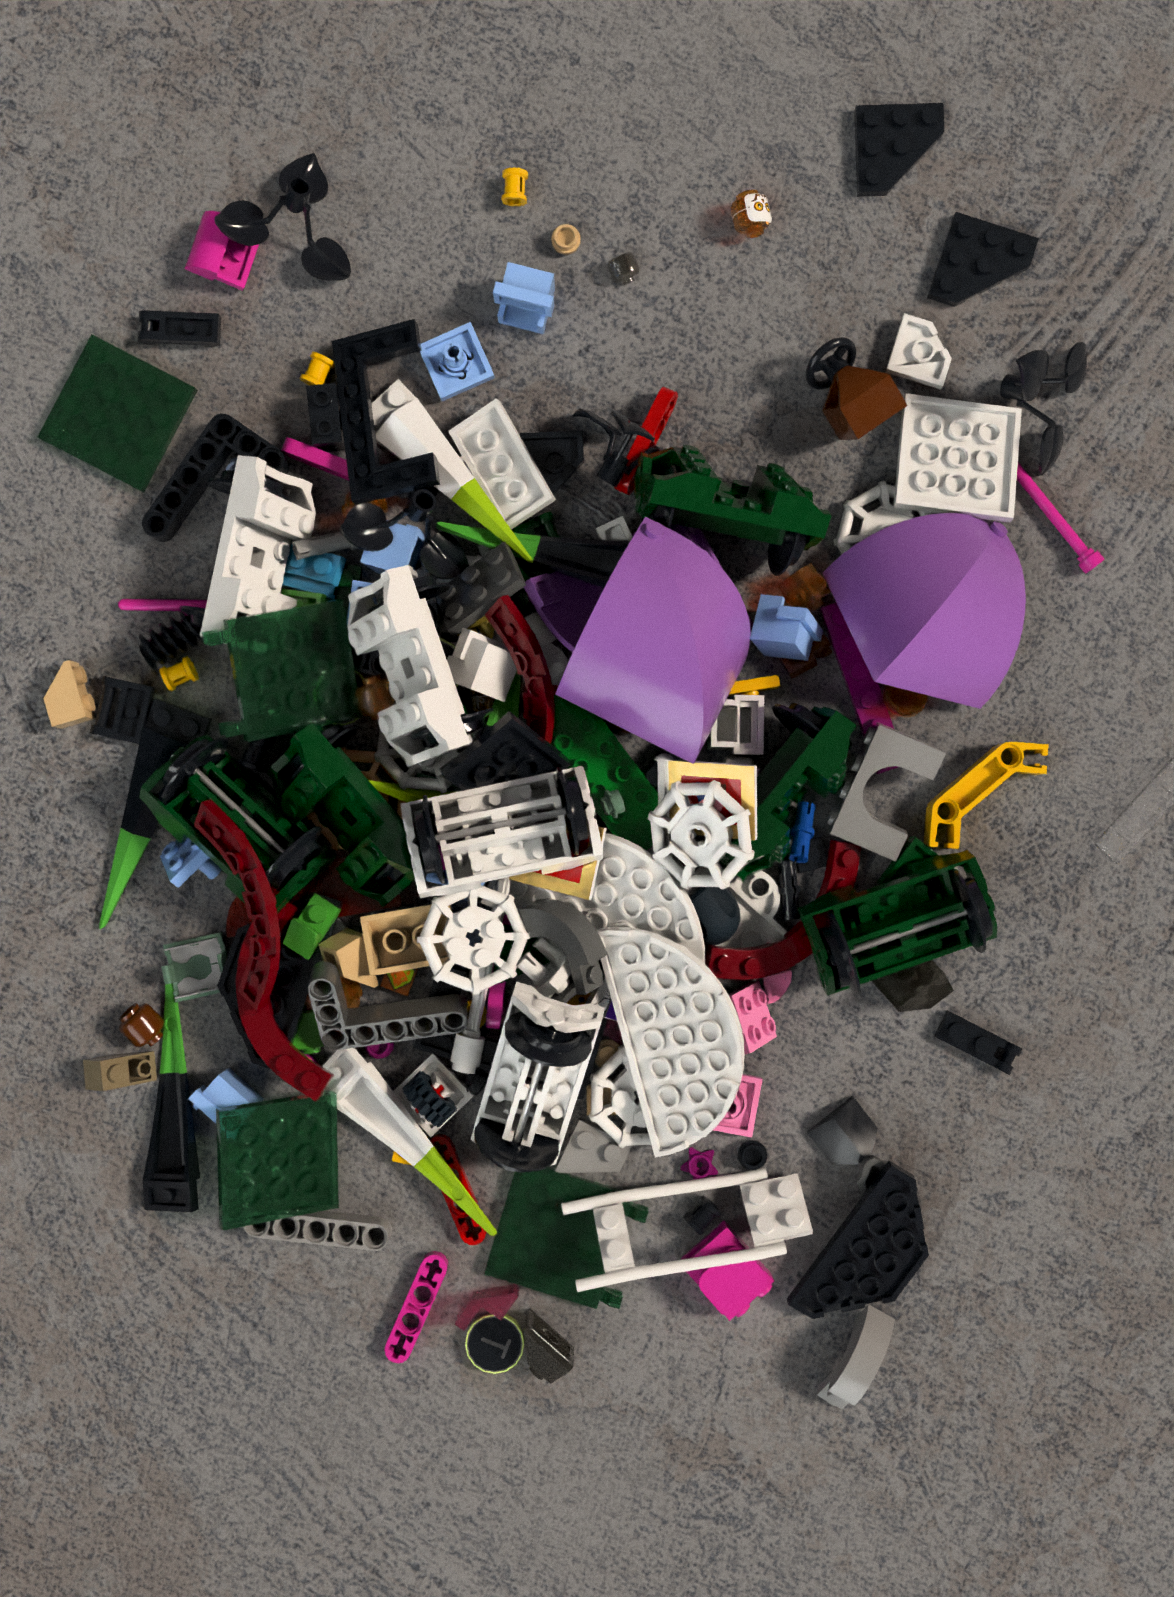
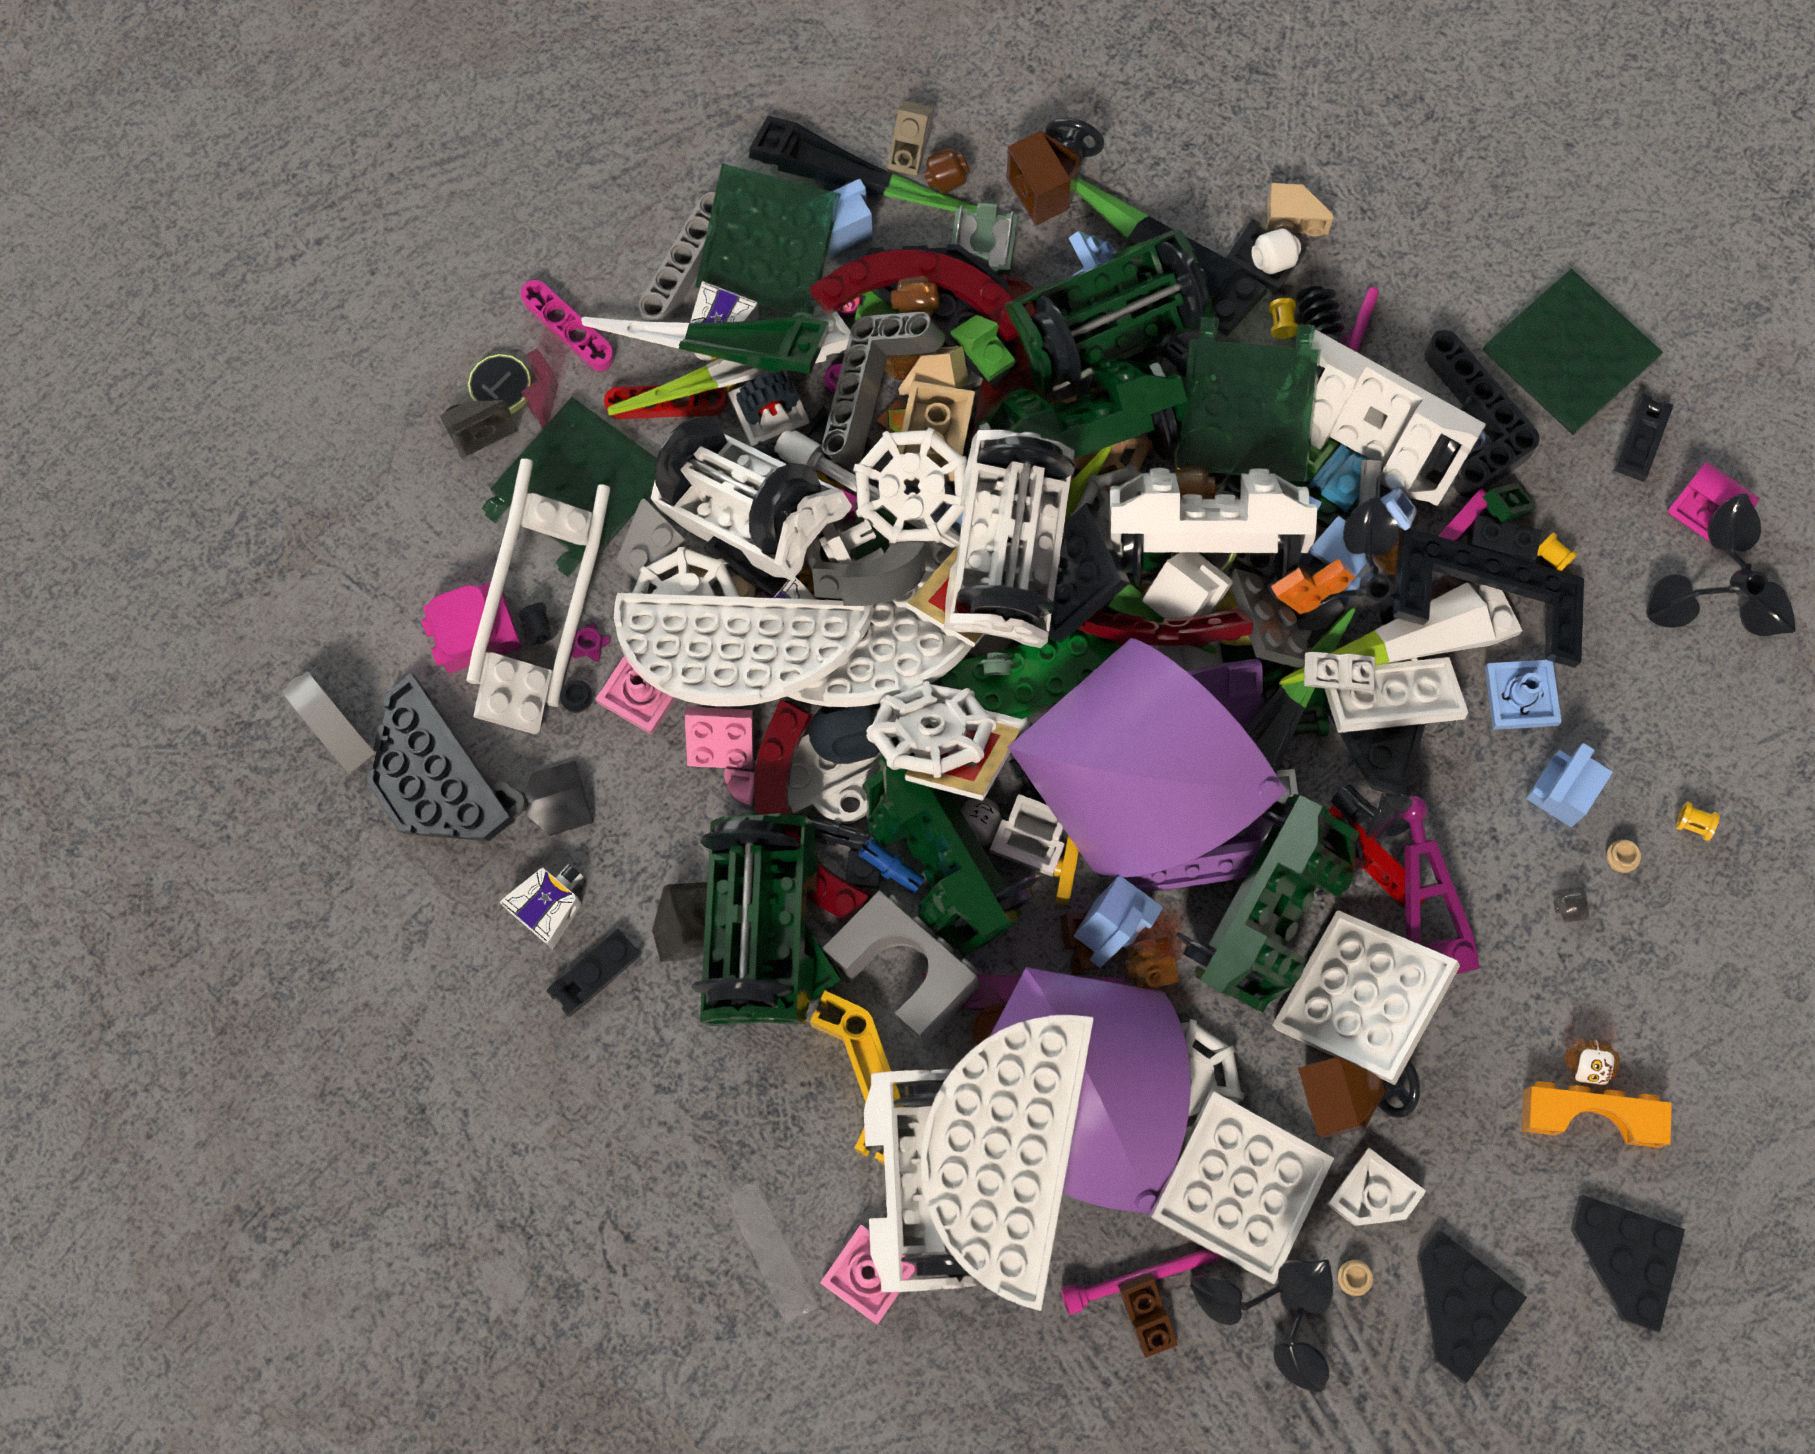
camera: 110 degrees right, 15 degrees down
(111, 934) = (1047, 168): none -> reddish brown piece
(120, 699) = (1276, 251): none -> white head
(258, 898) = (1026, 290): dark red plate -> none
(288, 422) = (1508, 502): none -> dark green plate
(290, 1002) = (915, 295): none -> clear orange head
(335, 511) = (1400, 507): none -> light blue slope
(364, 1171) = (720, 305): none -> torso
(383, 1121) = (763, 344): none -> dark green plate
(446, 564) = (1307, 592): none -> orange plate
(504, 514) = (1339, 671): none -> white slope
(705, 355) = (1461, 947): none -> magenta plate
(770, 406) = (1366, 996): none -> white plate
(801, 233) = (1639, 1120): none -> light orange arch
(940, 1105) = (545, 903): none -> torso
(990, 348) = (1355, 1278): none -> tan plate
(1037, 644) = (1002, 1152): none -> white plate
(1061, 701) = (908, 1221): none -> white piece
(1080, 499) = (1147, 1315): none -> reddish brown slope
(1133, 726) = (857, 1280): none -> bright pink plate

